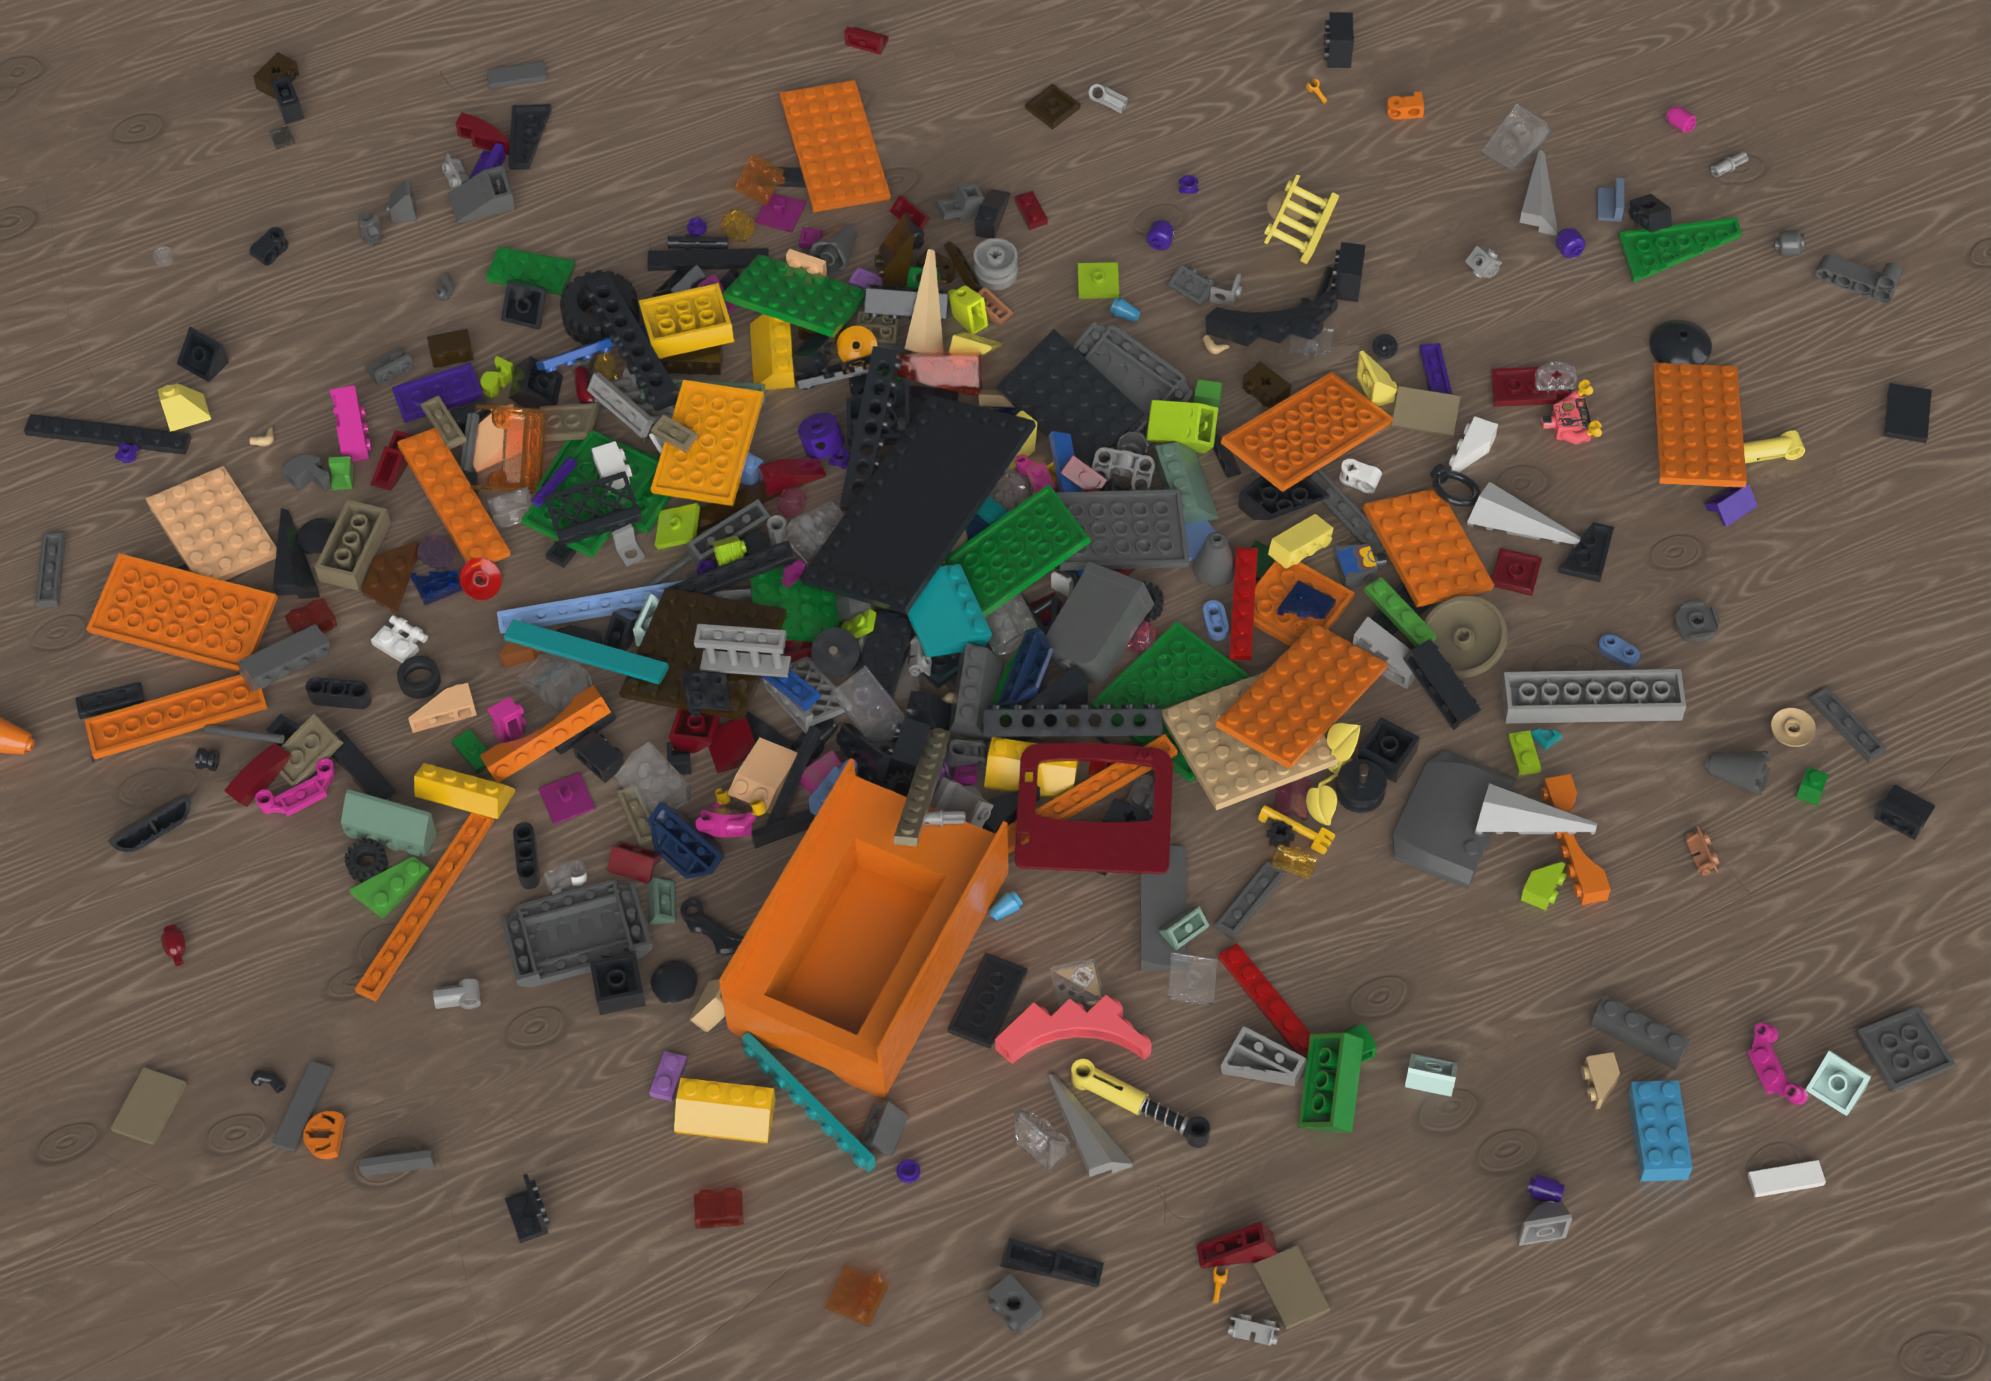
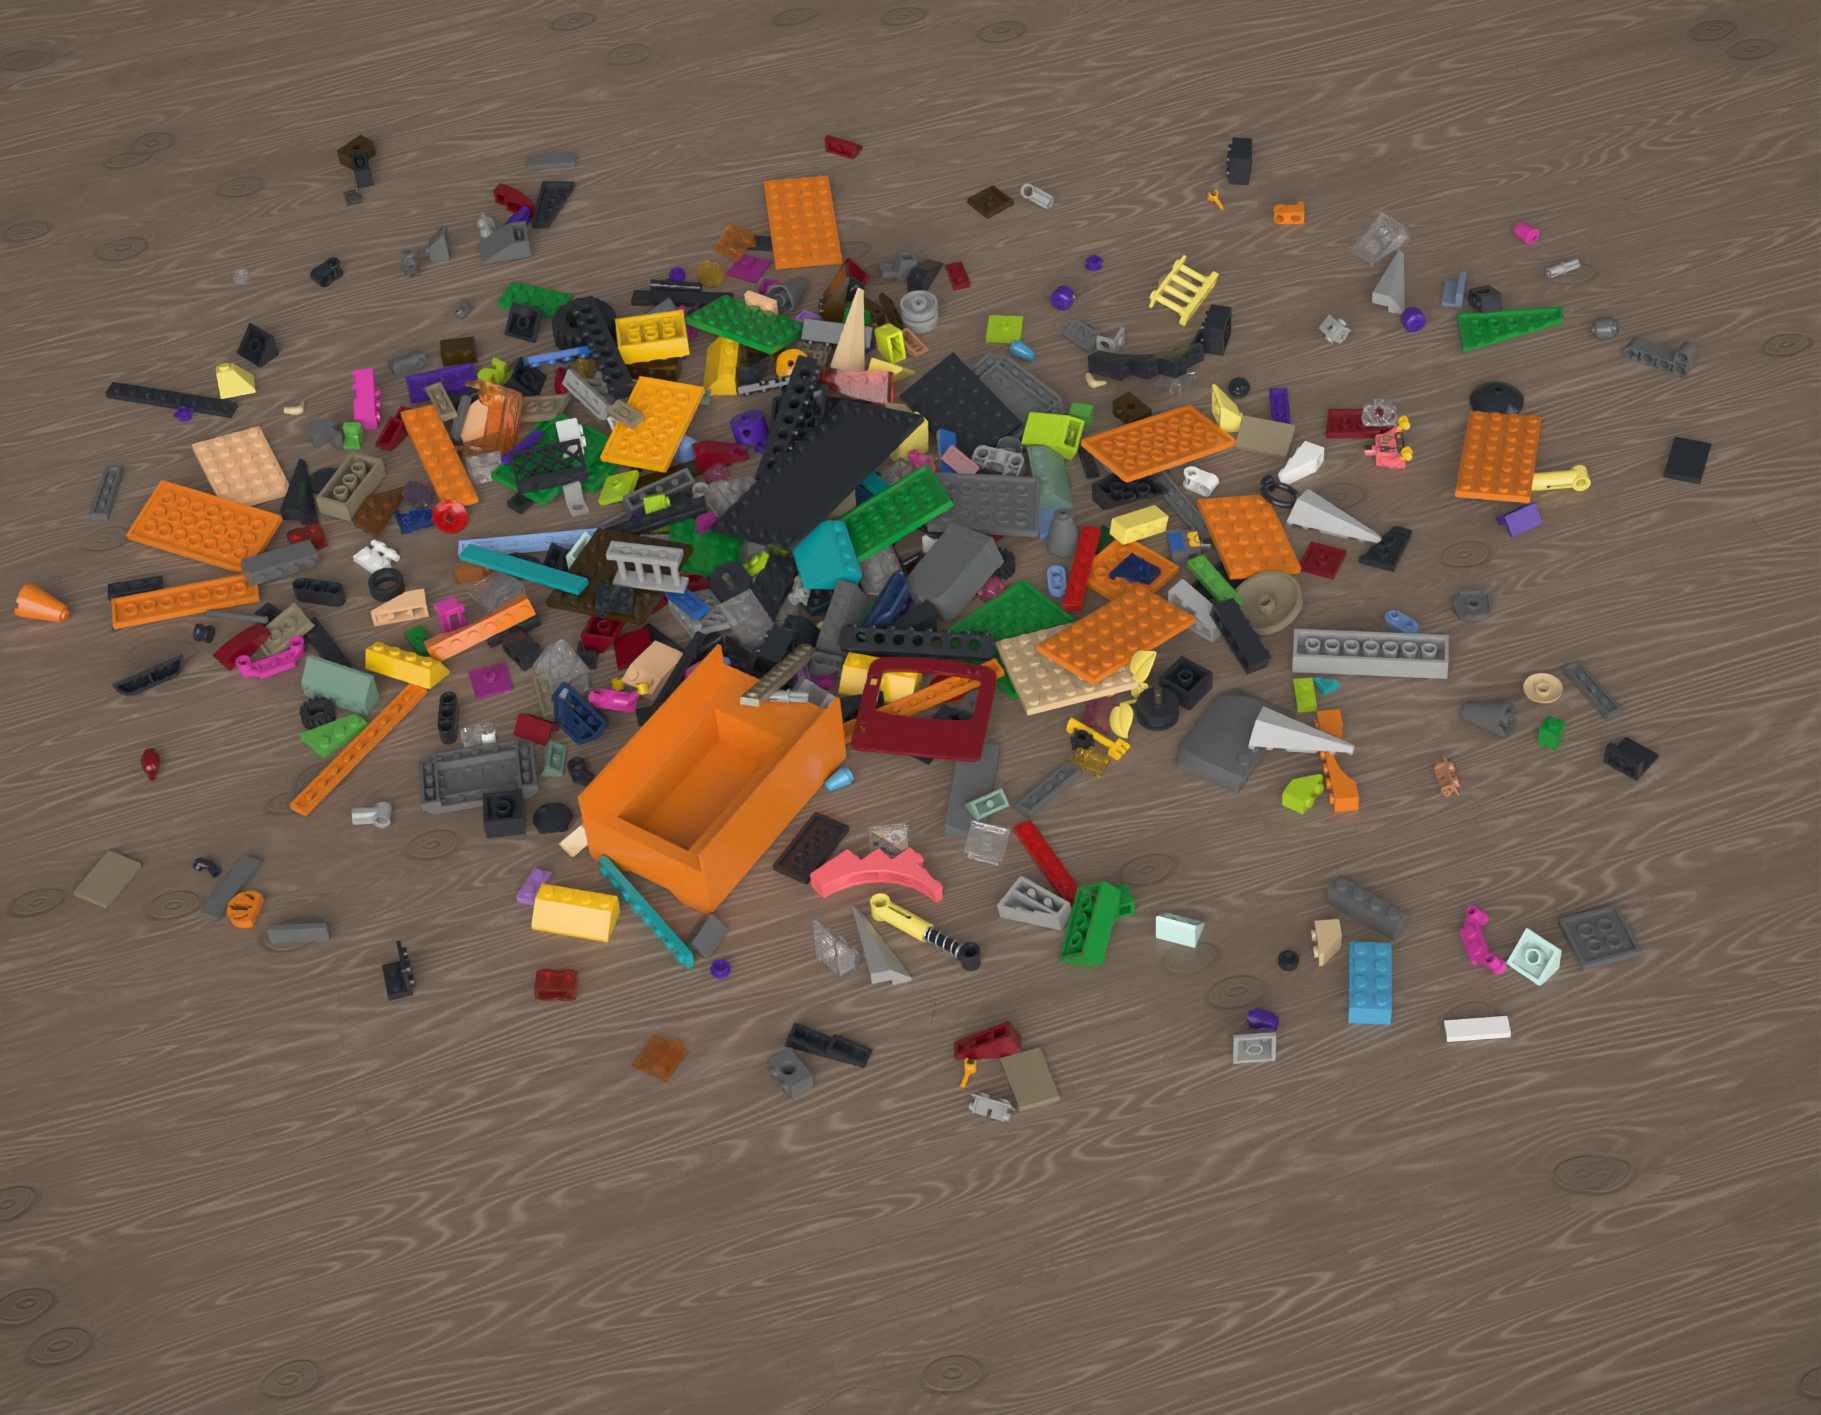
camera: 10 degrees right, 10 degrees down
(1560, 1106) = (1288, 960): none -> black tile

